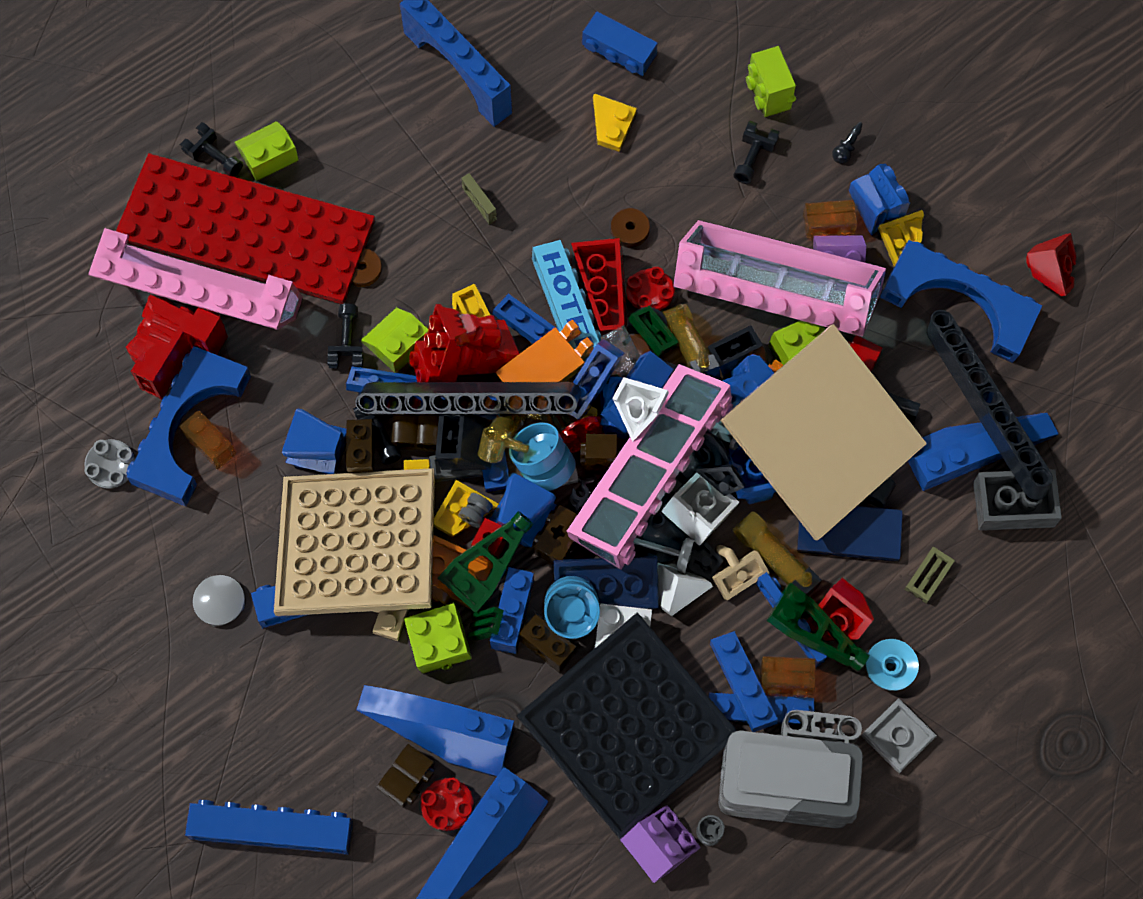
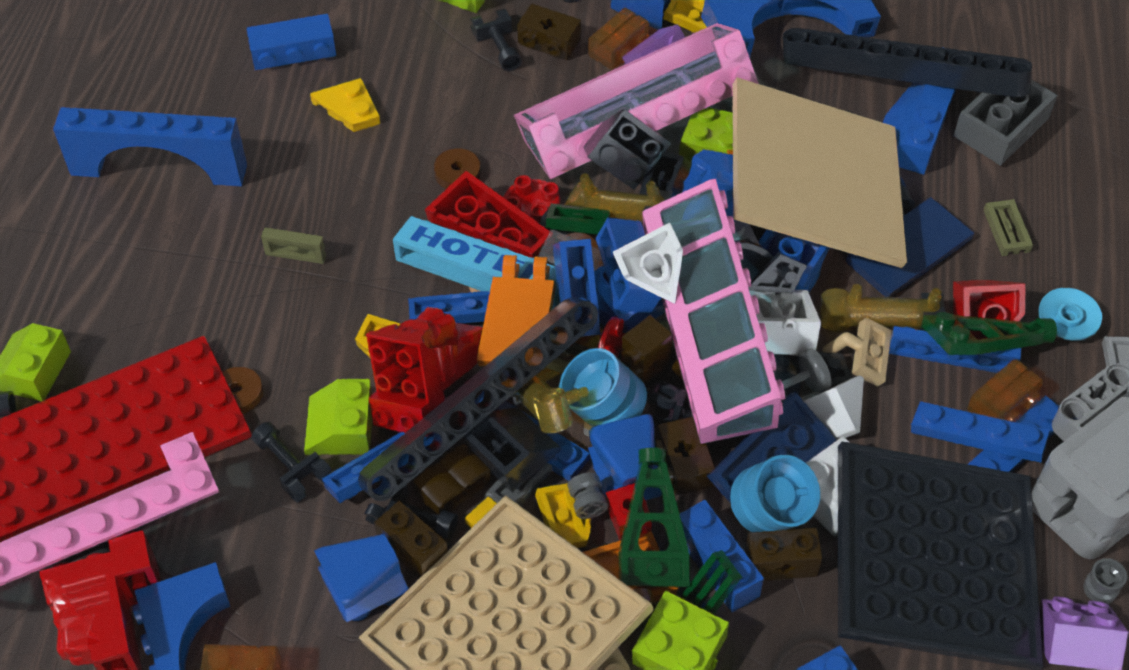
camera: 45 degrees left, 15 degrees down
(723, 310) = (626, 147): none -> black slope
(789, 175) = (549, 31): none -> dark brown brick

